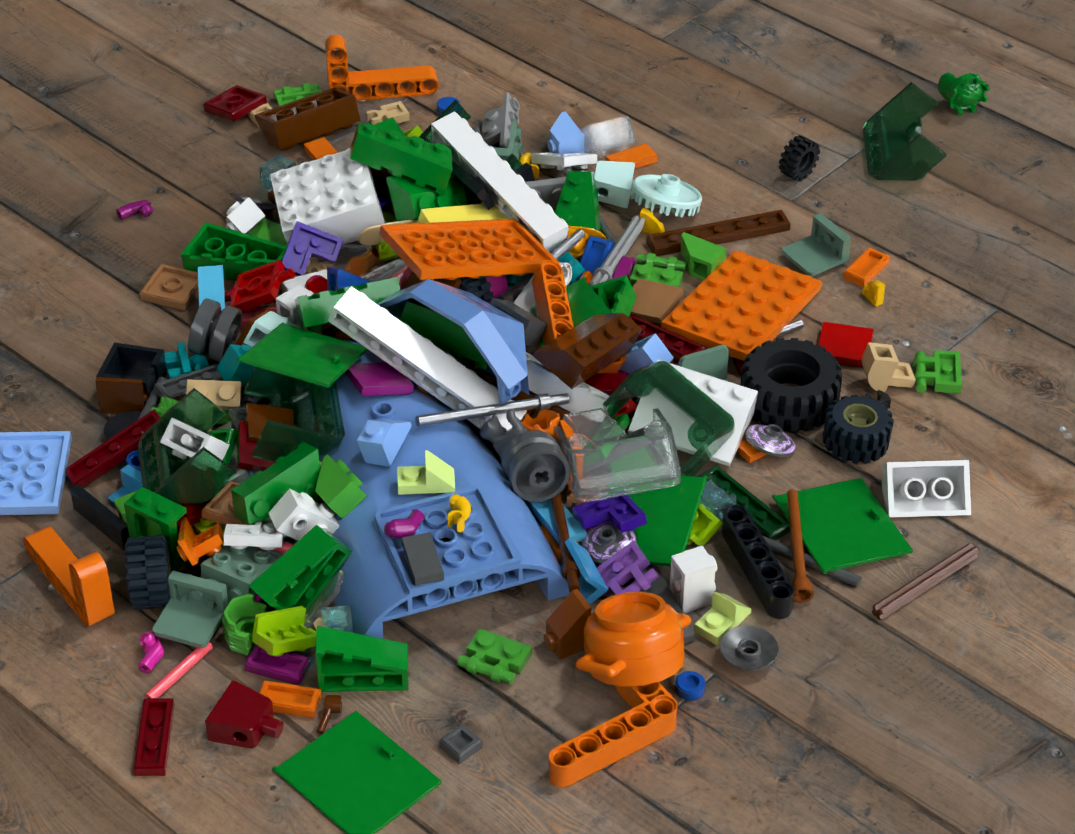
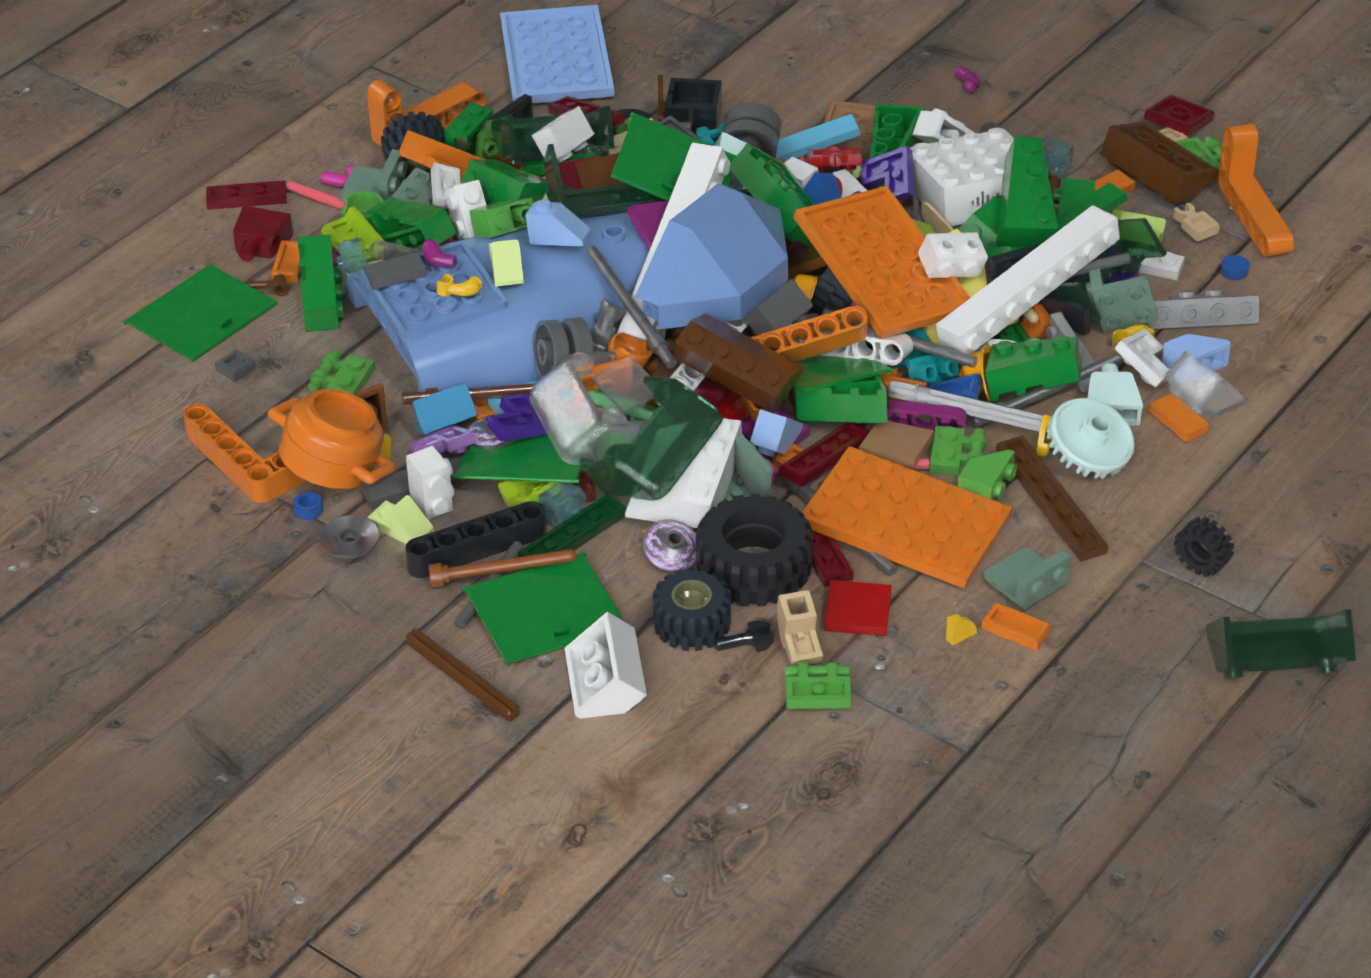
camera: 85 degrees right, 0 degrees up
(472, 208) = (952, 255): none -> white brick

